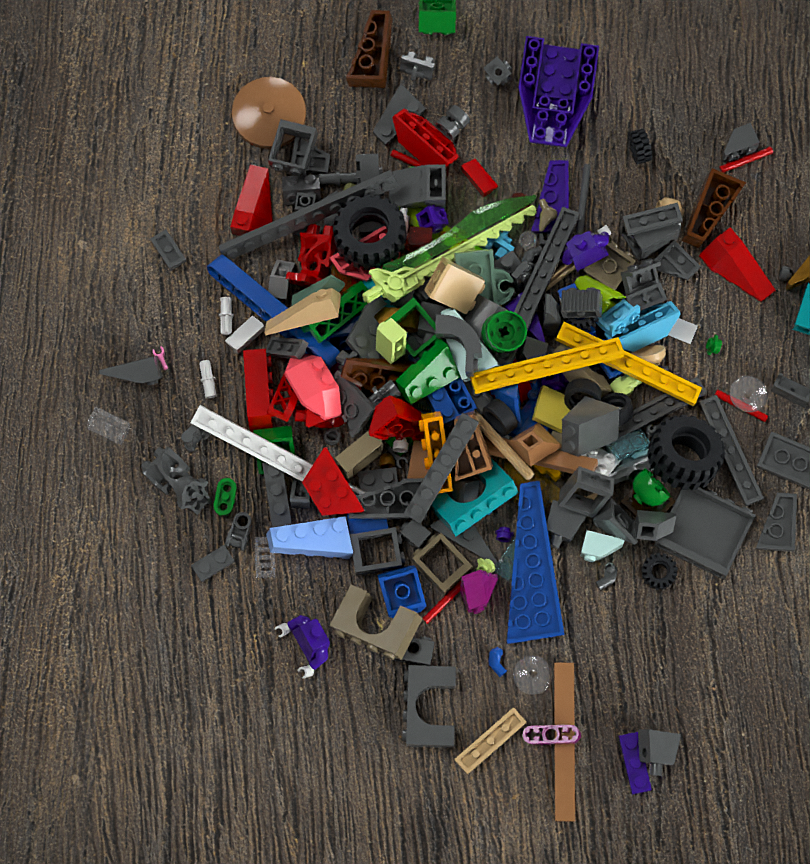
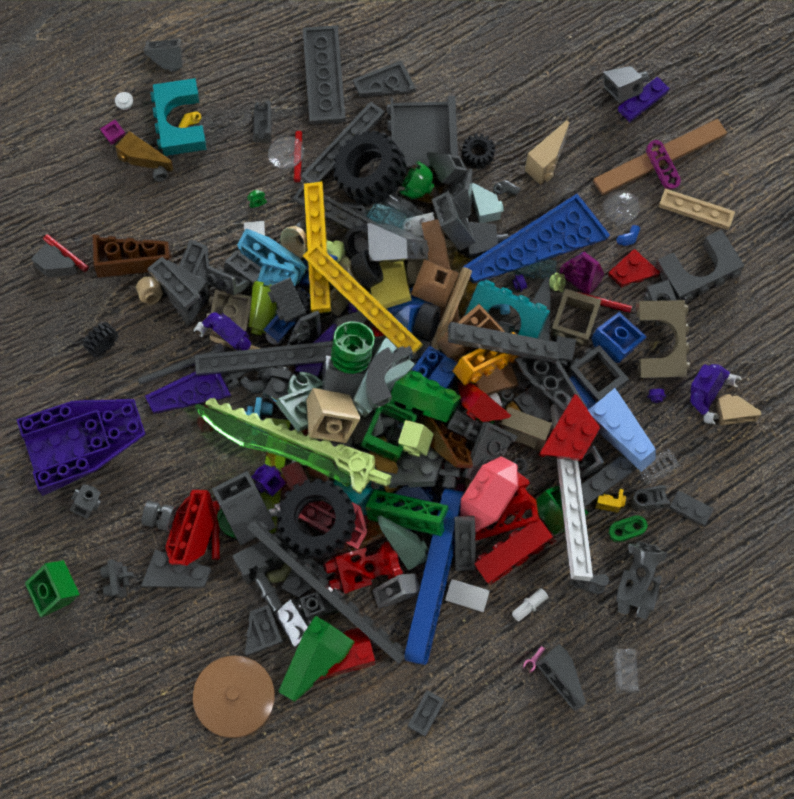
camera: 120 degrees left, 5 degrees down
(226, 315) = (459, 622): white axle -> none
(257, 492) = (608, 503): none -> yellow bracket
(262, 185) = (316, 654): none -> green wedge
(276, 653) = (735, 410): none -> tan slope
(297, 130) = (240, 637): dark grey window -> none
(312, 309) = (427, 530): tan wedge -> none
(329, 593) = (656, 395): none -> dark purple plate
(372, 56) = (124, 625): reddish brown wedge -> none
(462, 646) = (633, 269): none -> red wing
(478, 177) = (200, 467): red slope -> none
(528, 240) = (240, 393): clear plate -> none
(547, 215) = (210, 385): dark tan animal -> none
(615, 626) = (544, 157): none -> tan slope
(733, 261) = (171, 215): red wedge -> none

